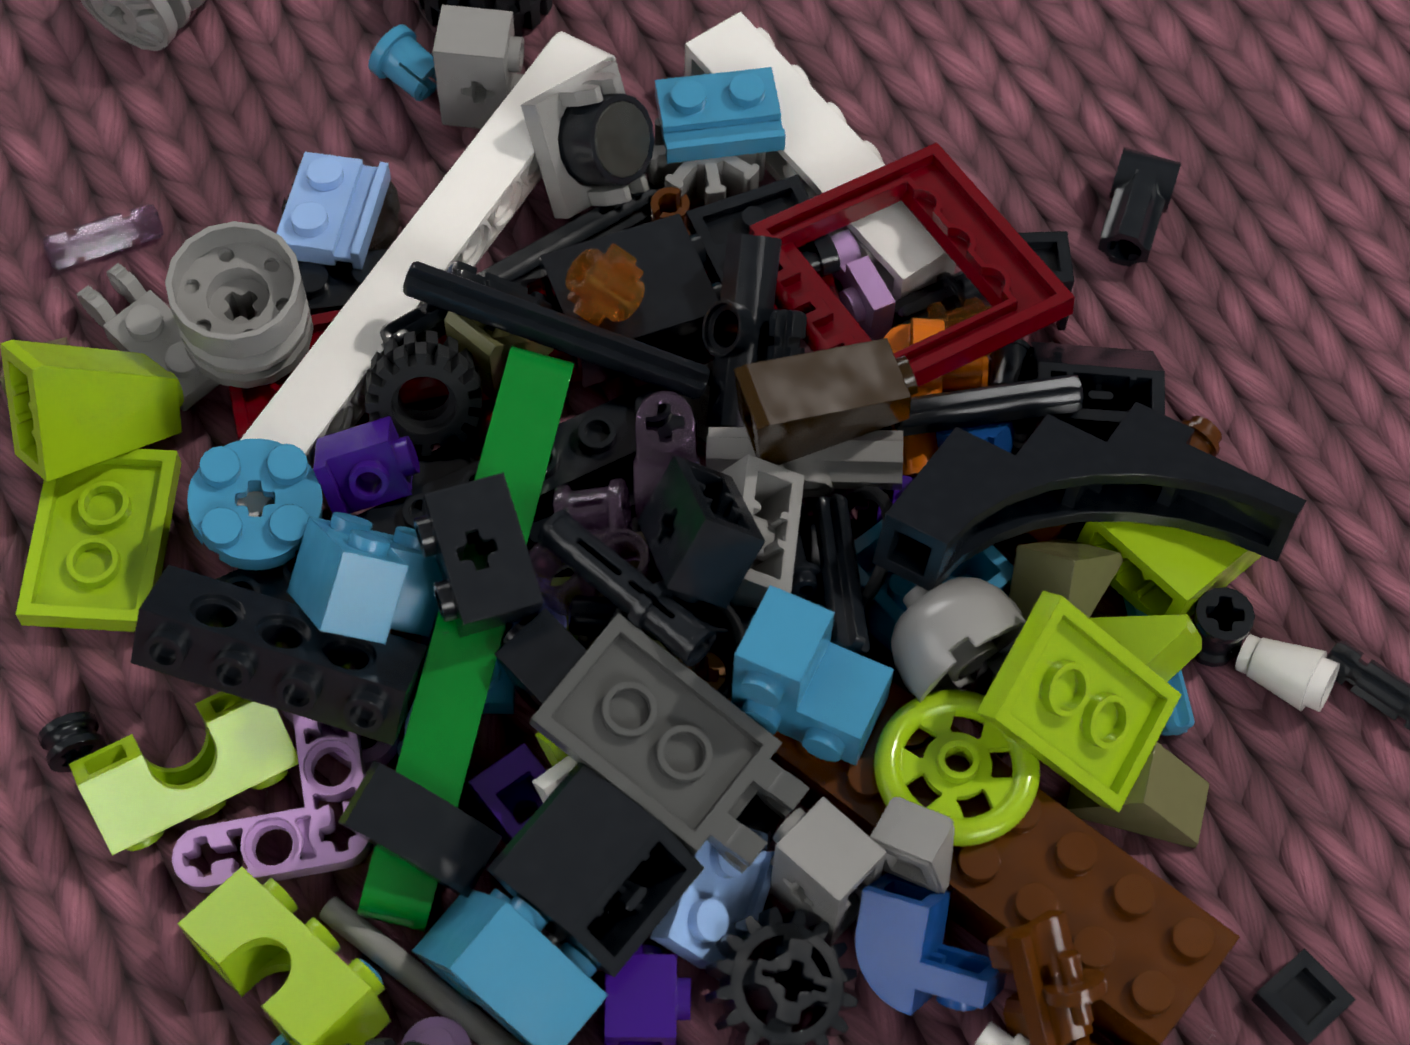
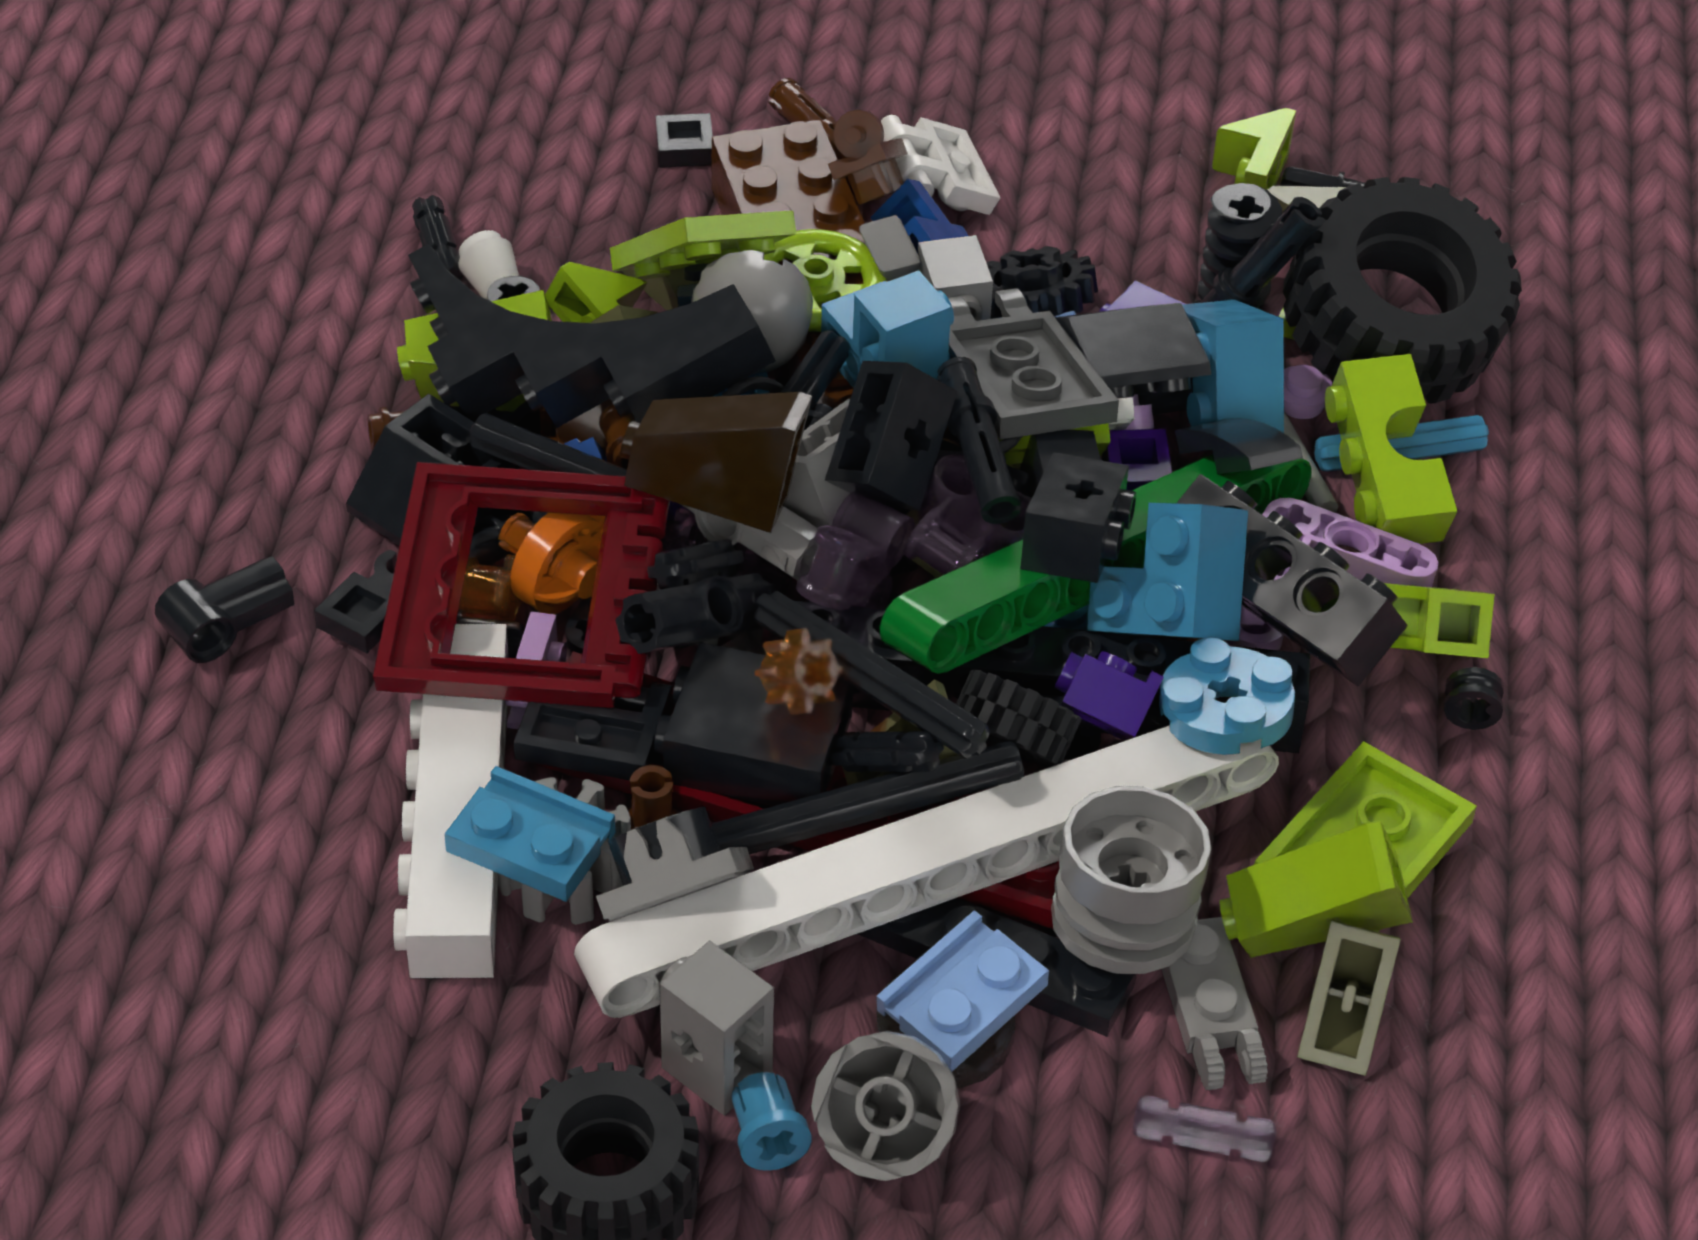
camera: 145 degrees left, 15 degrees down
(324, 94) = (885, 1105): none -> light grey cylinder

